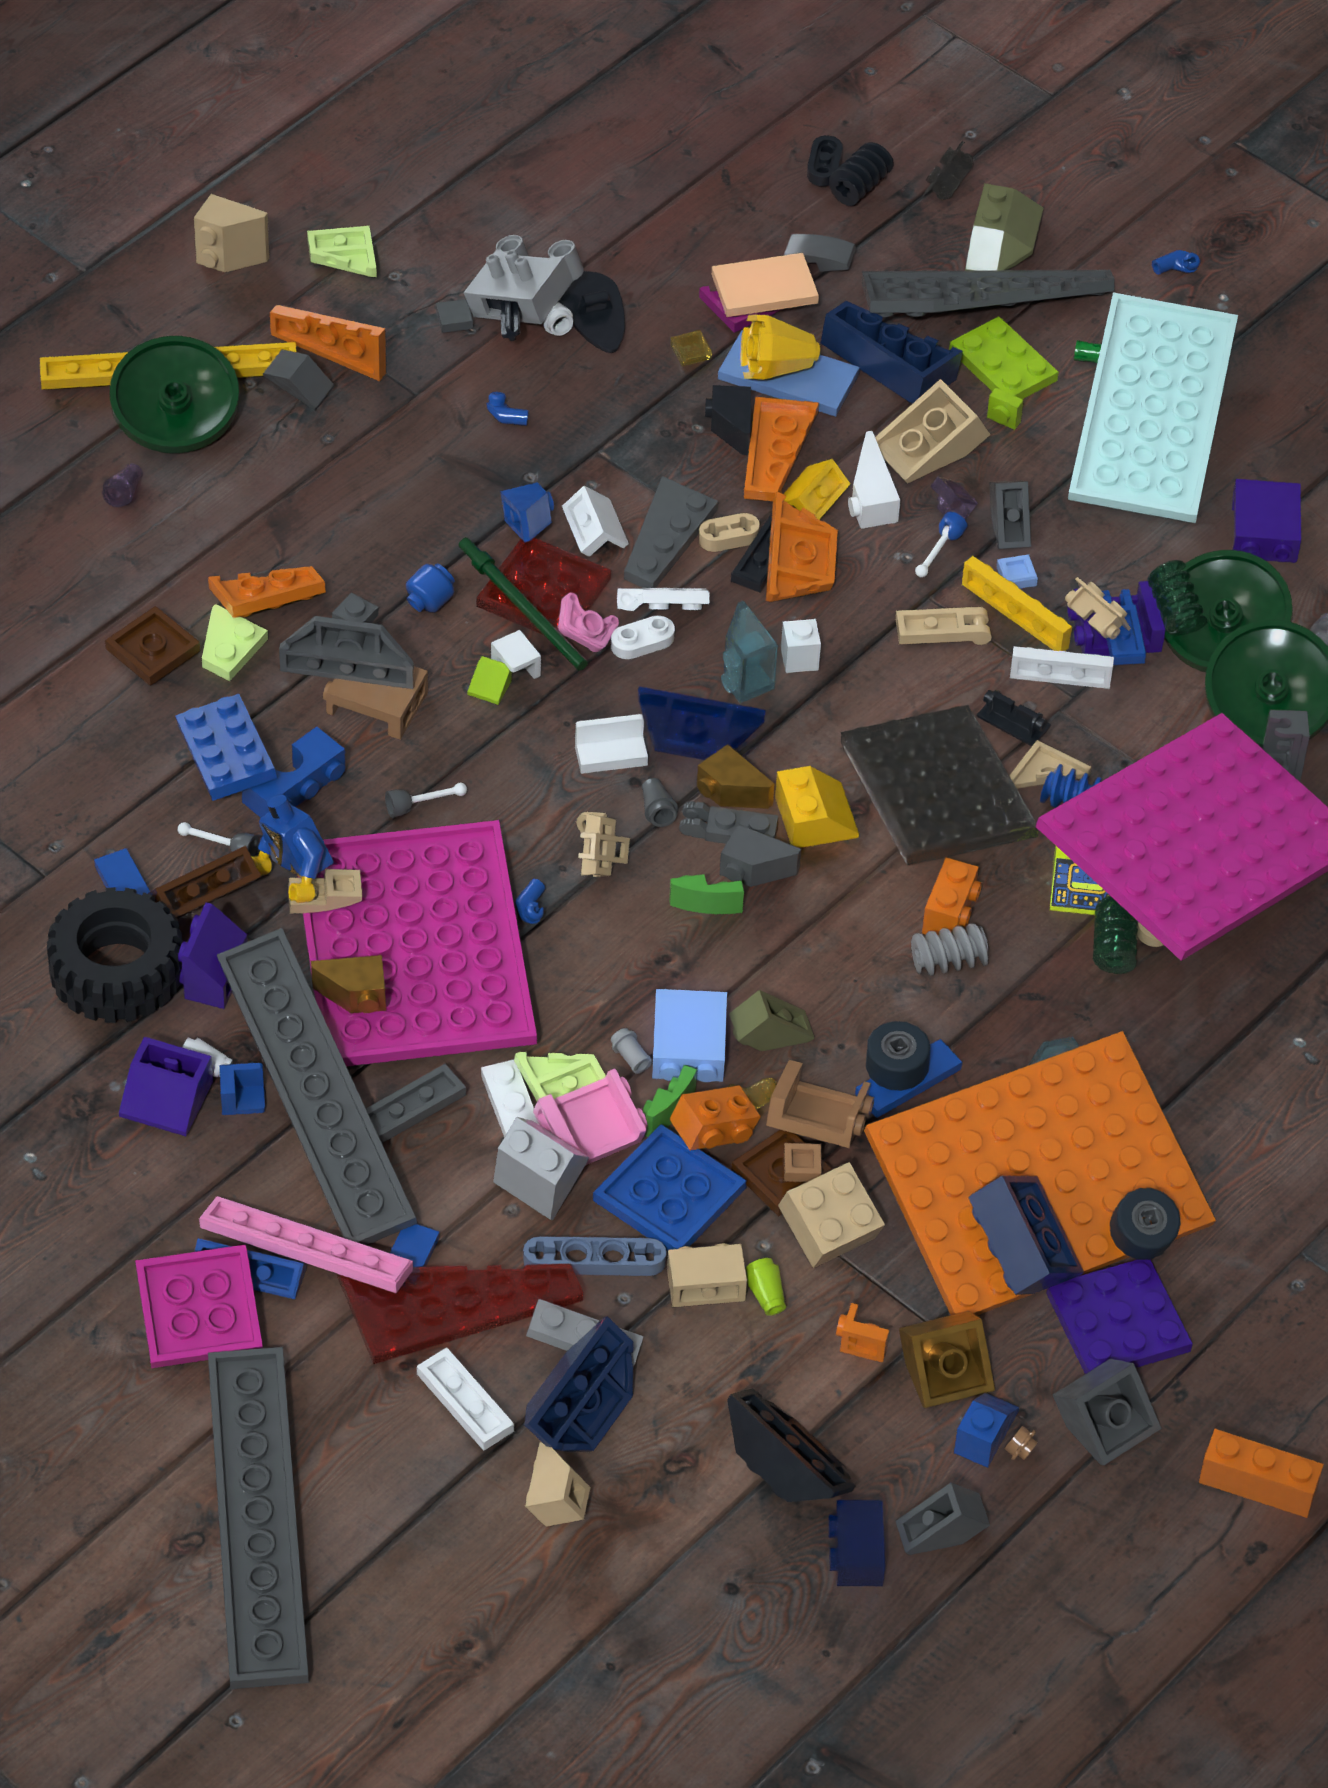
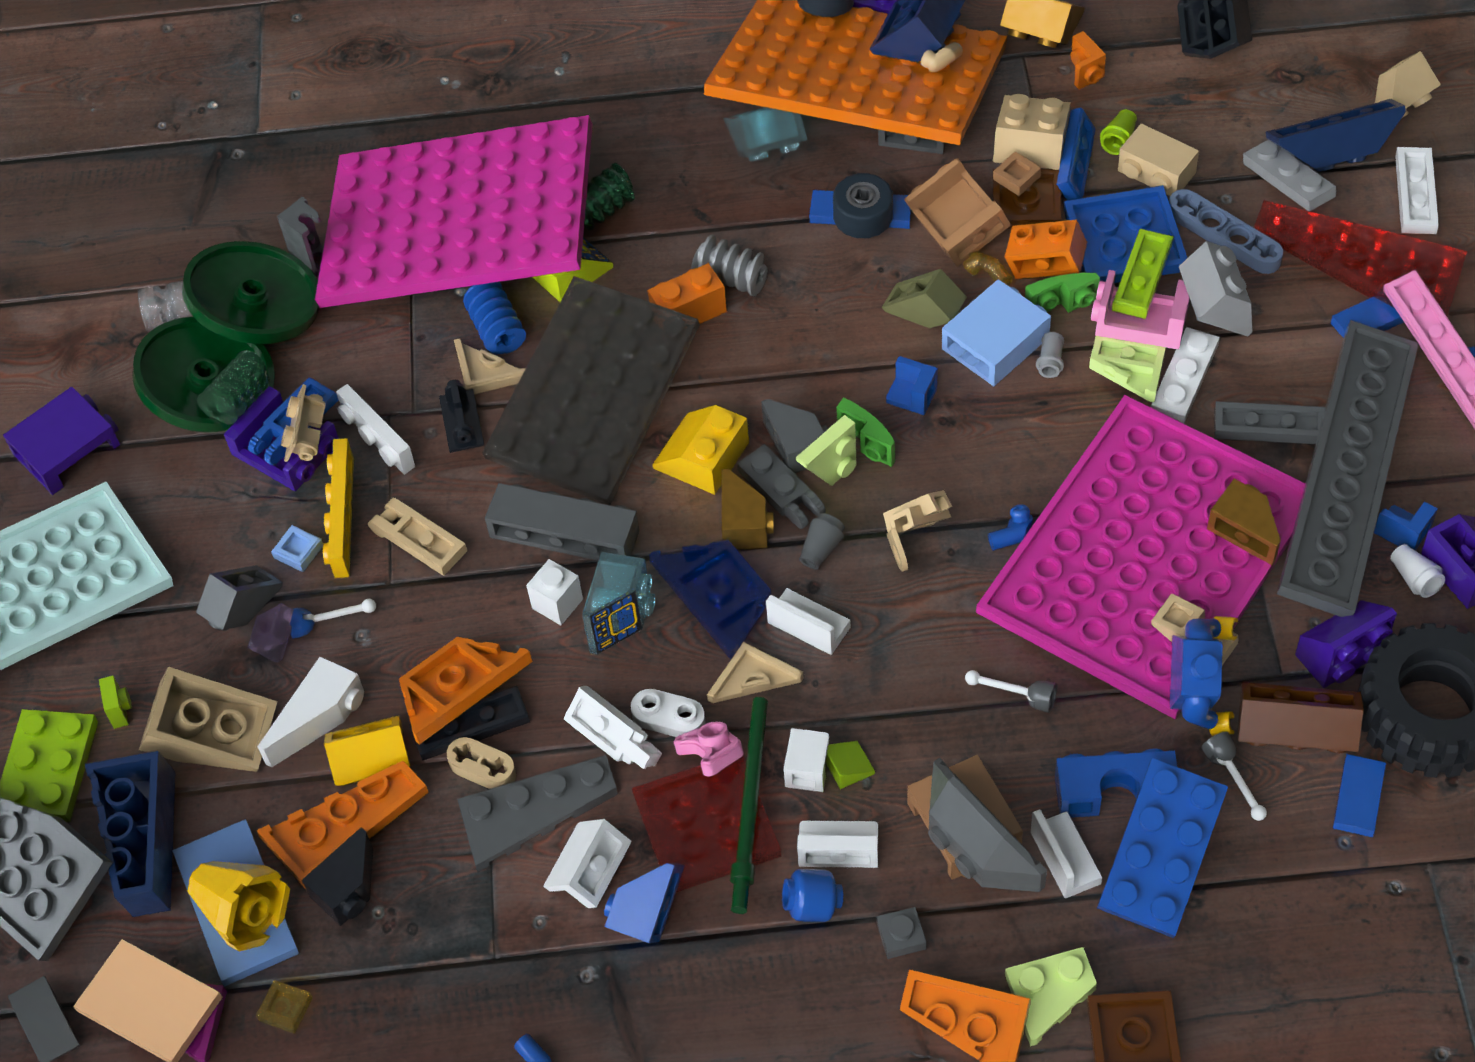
camera: 130 degrees left, 5 degrees up
(291, 712) = (1065, 853): none -> white panel
(445, 631) = (838, 844): none -> white panel
(613, 698) = (751, 673): none -> tan tile
(617, 1147) = (1142, 273): none -> lime tile
(703, 837) = (833, 453): none -> yellowish green wing
(710, 958) = (913, 385): none -> blue panel
(778, 1232) = (1076, 155): none -> blue tile
(850, 693) = (560, 522): none -> dark grey brick
(960, 1203) = (942, 58): none -> tan arm

